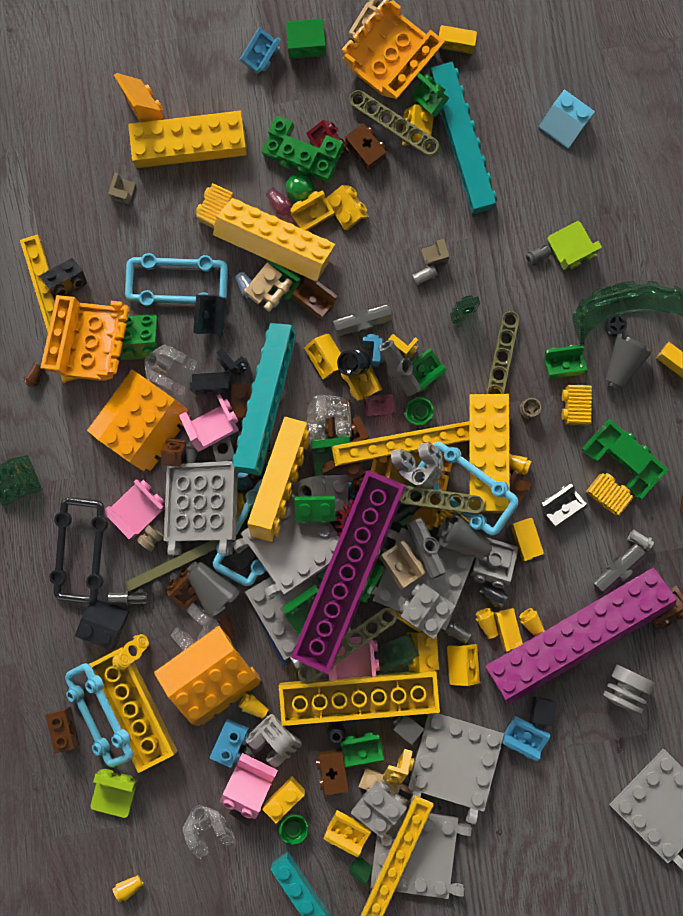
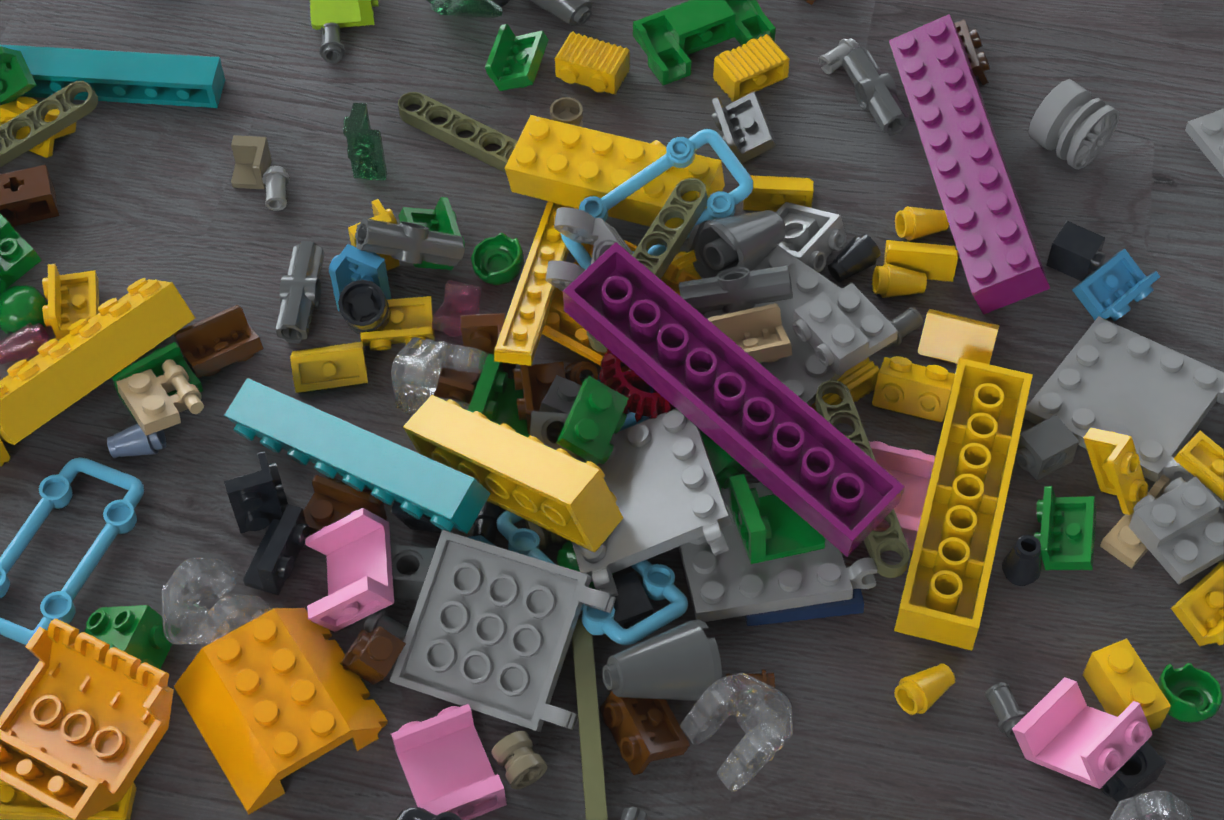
camera: 70 degrees left, 30 degrees down
(207, 677) = (835, 726): light orange slope -> none
(209, 314) = (153, 502): black bracket -> none
(229, 742) = (985, 752): dark azure brick -> none
(277, 736) = (1003, 635): light grey piece -> none
(335, 760) = (1094, 590): reddish brown brick -> none
(347, 206) = (105, 253): yellow bracket -> none
(397, 652) = (903, 411): clear green bracket -> none

